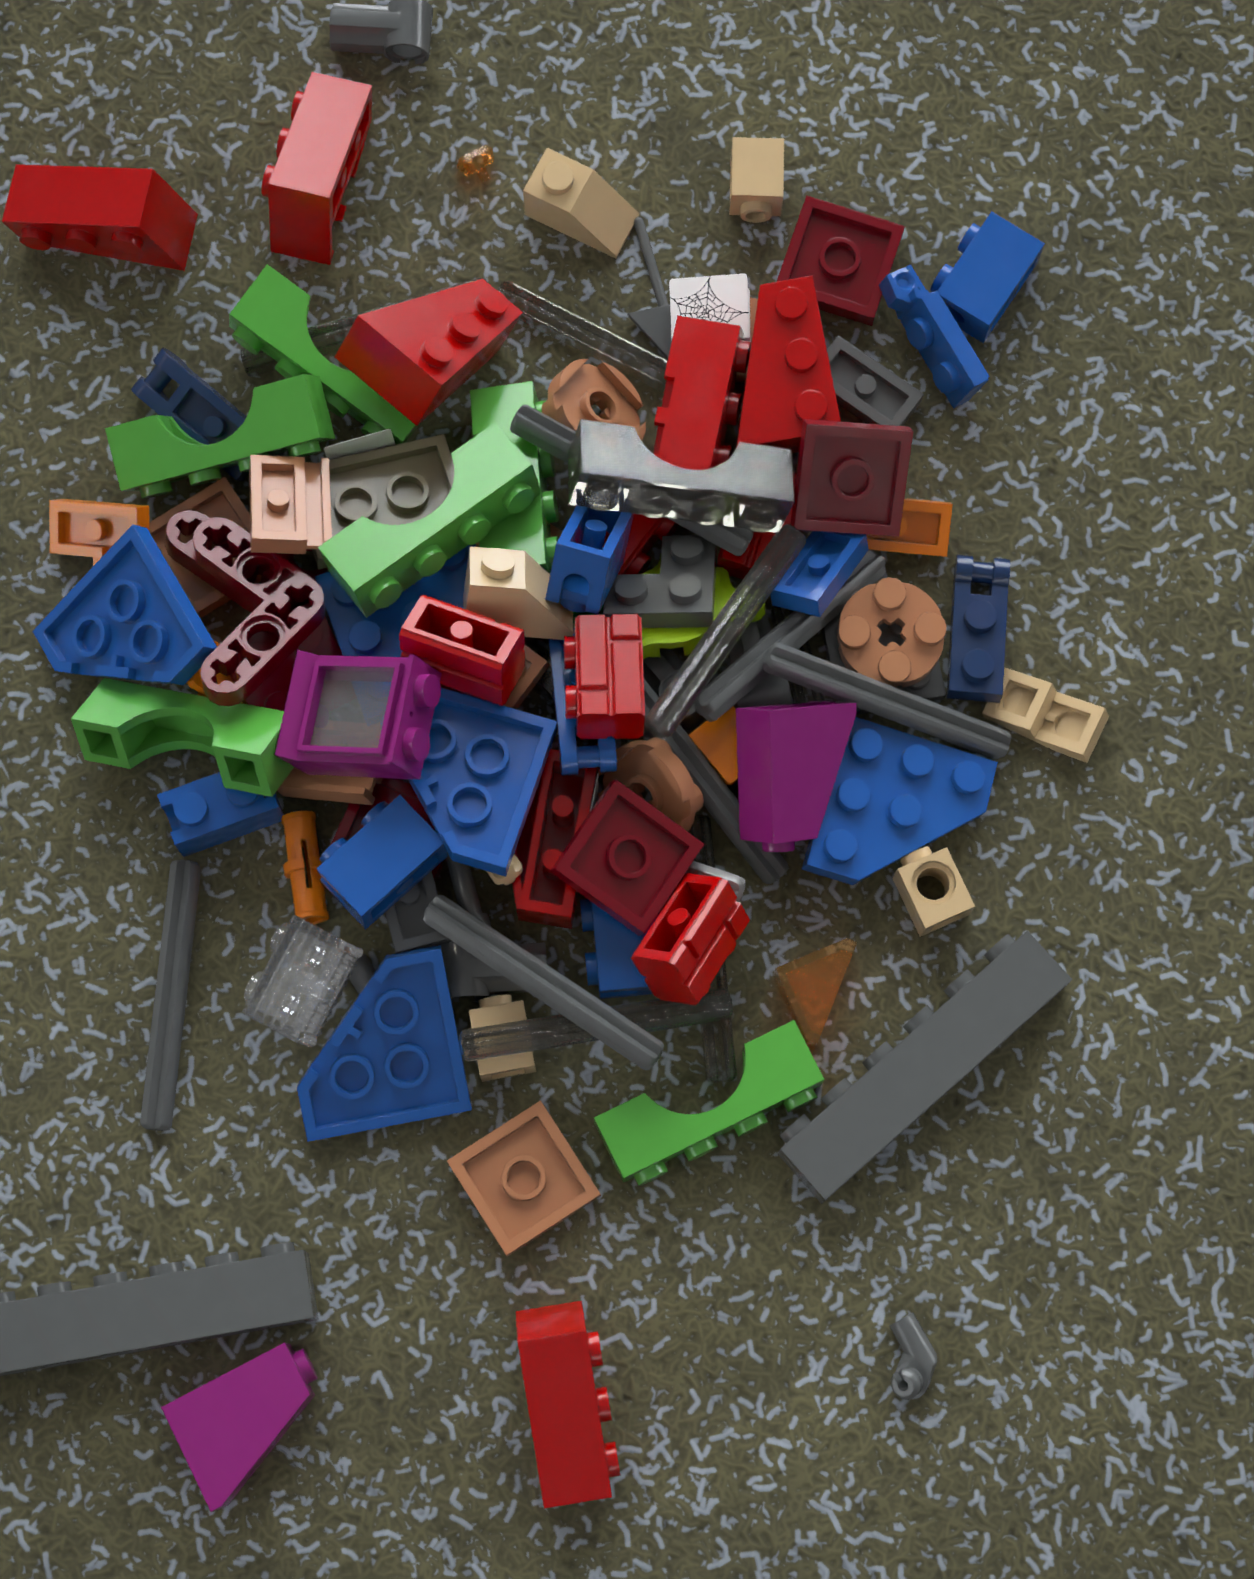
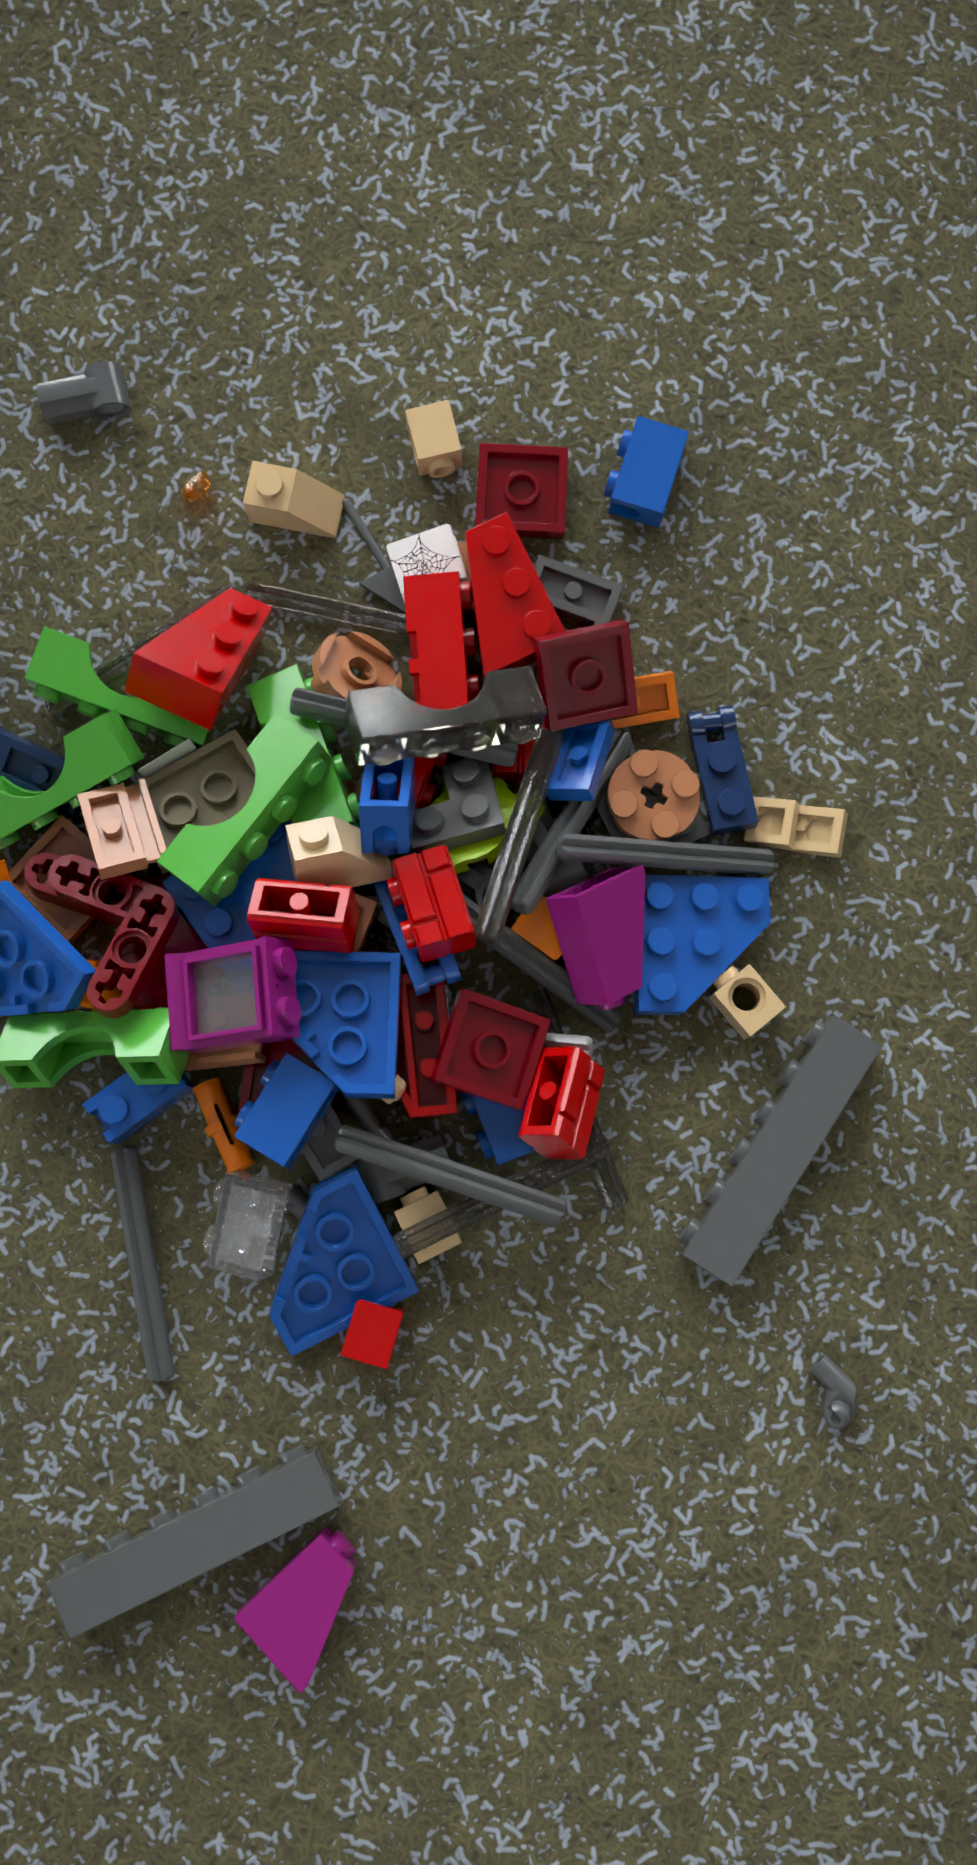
camera: 15 degrees left, 5 degrees up
(316, 165) = (62, 527): wedge -> none
(407, 1139) = (372, 1333): none -> red panel
(523, 1178) = (478, 1335): nougat plate -> none
(565, 1404) = (565, 1515): red wedge -> none
(646, 1135) = (658, 1190): bright green arch -> none
(663, 773) = (501, 970): nougat plate -> none
(812, 985) = (671, 1110): clear orange slope -> none
(935, 335) = (619, 533): blue hinge -> none

